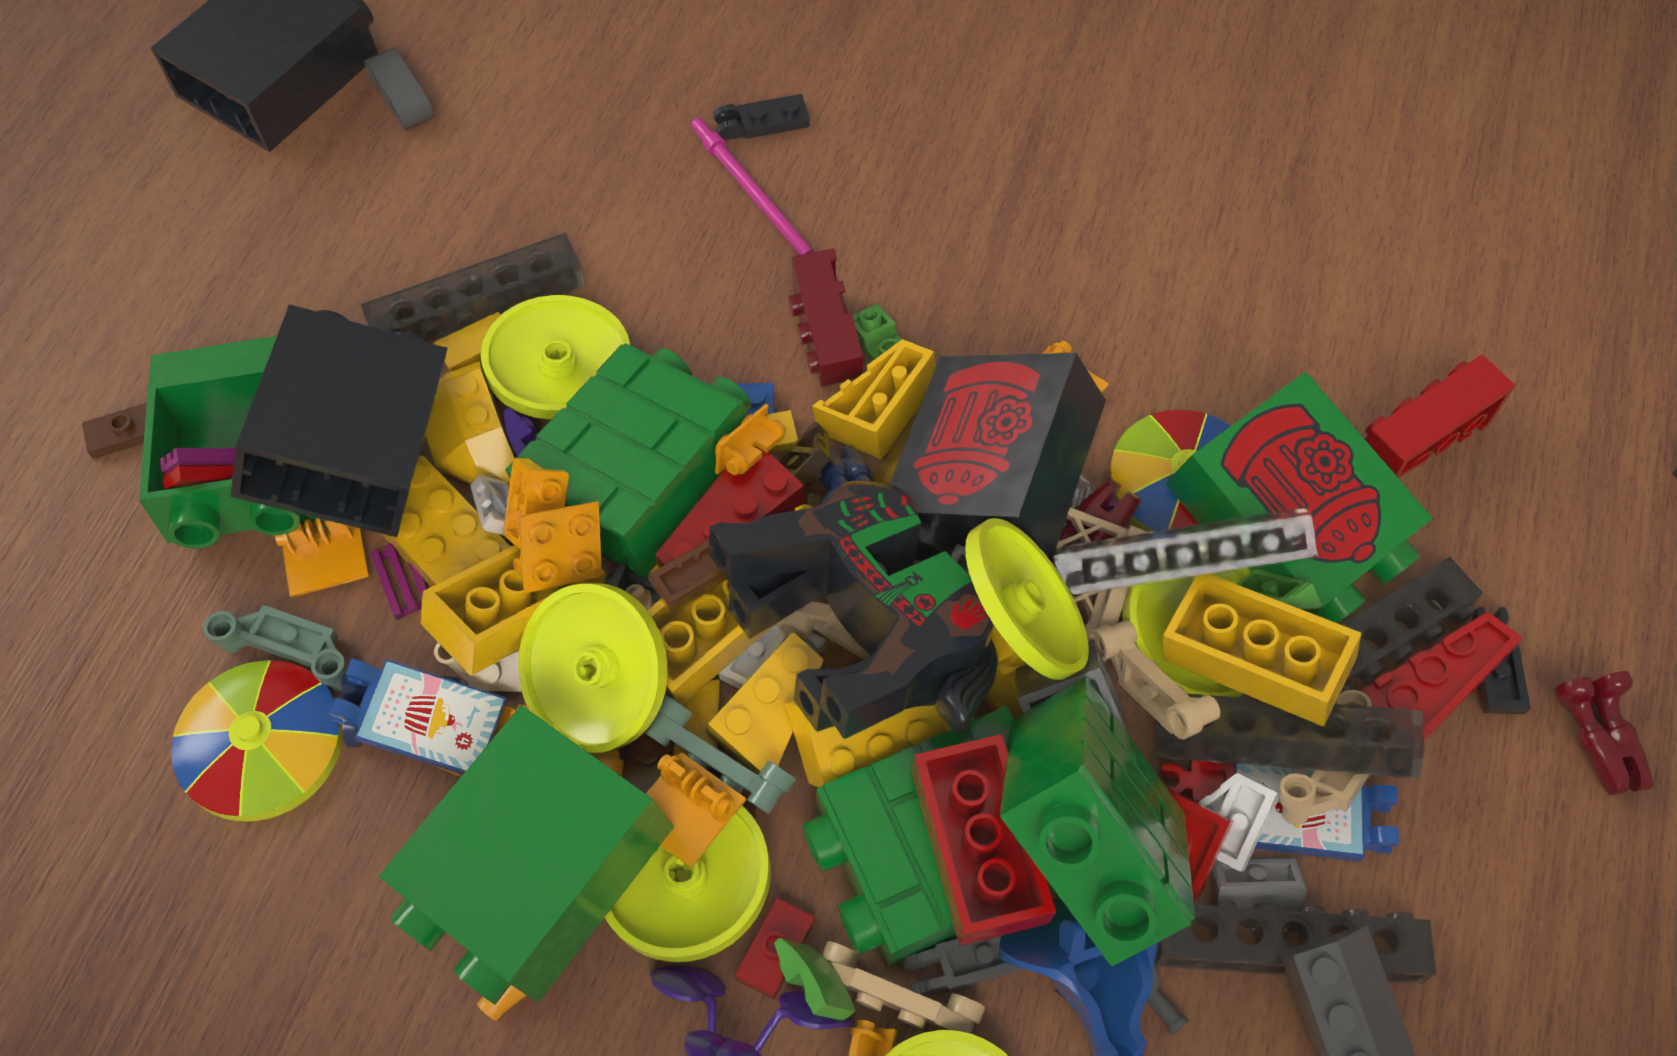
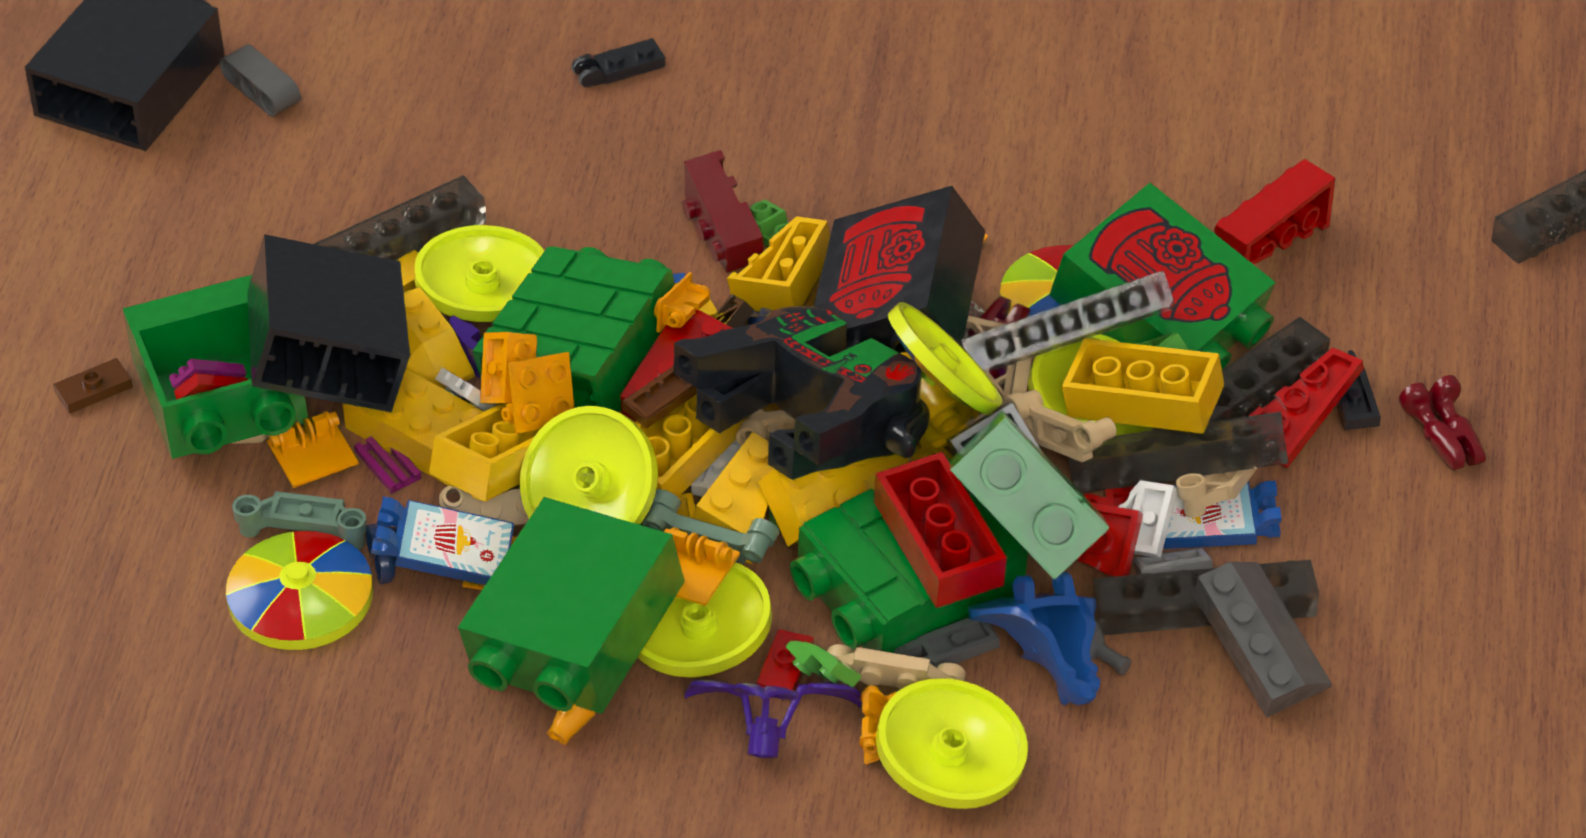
camera: 10 degrees left, 15 degrees down
(716, 147) = (581, 92): dark pink bar -> none

